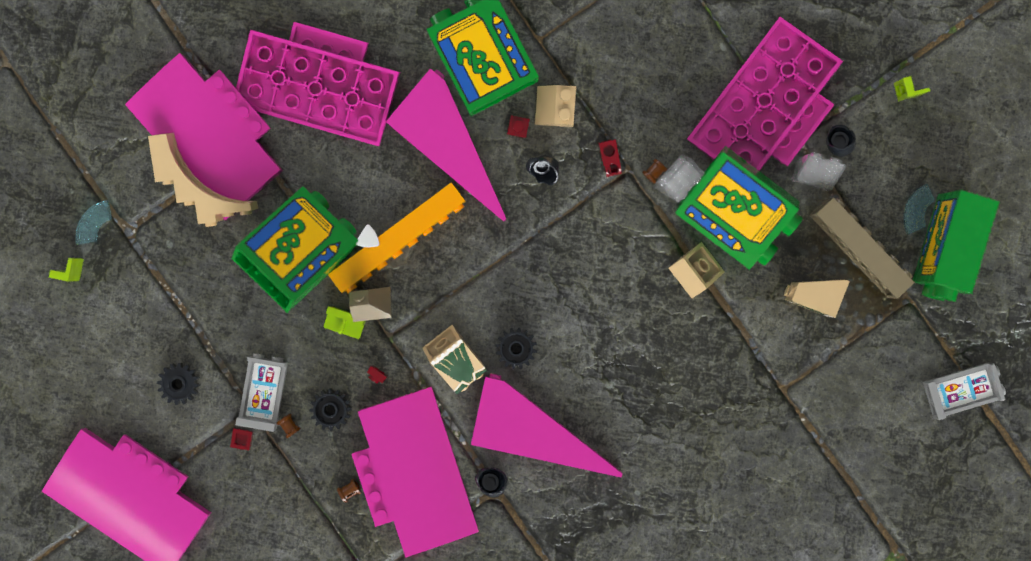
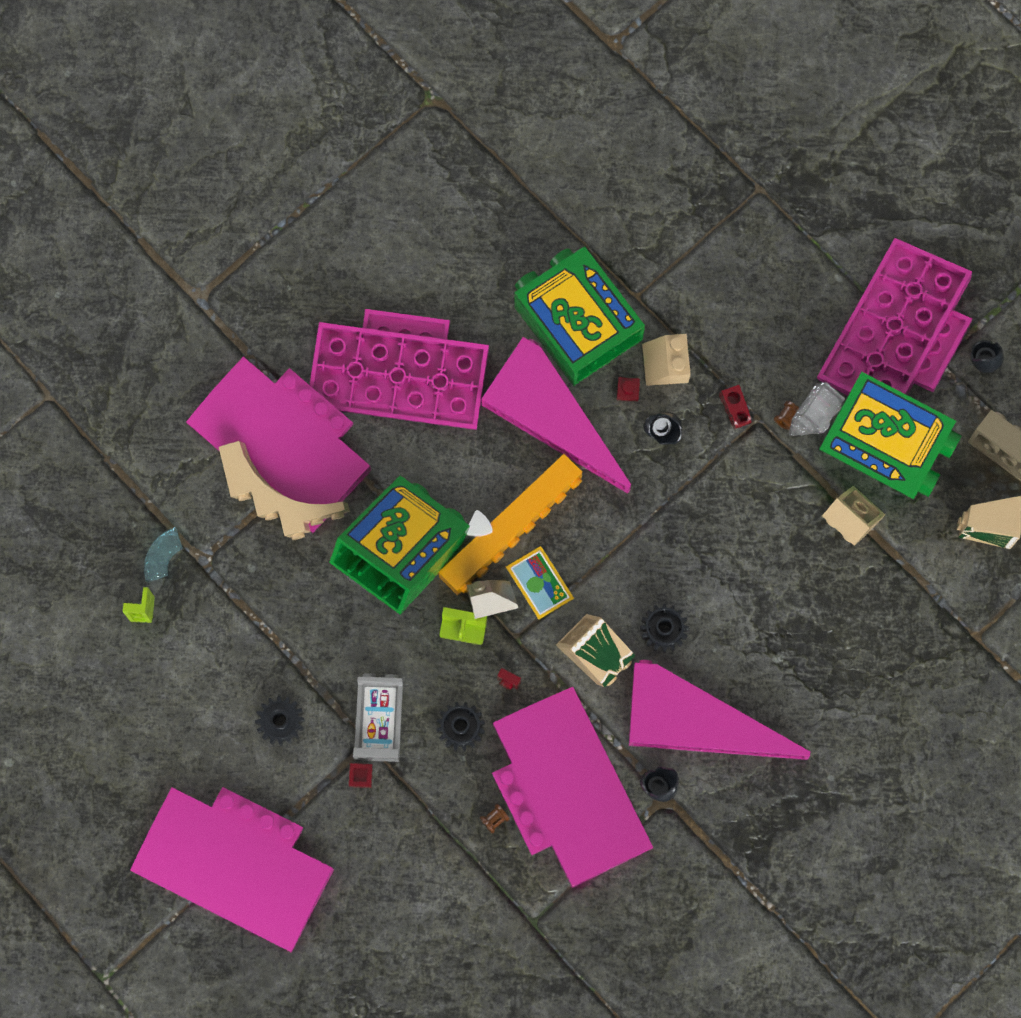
camera: 10 degrees left, 15 degrees down
(288, 425) = (413, 752): reddish brown bush -> none
(416, 291) = (539, 582): none -> sticker
(818, 172) = (968, 387): clear slope -> none

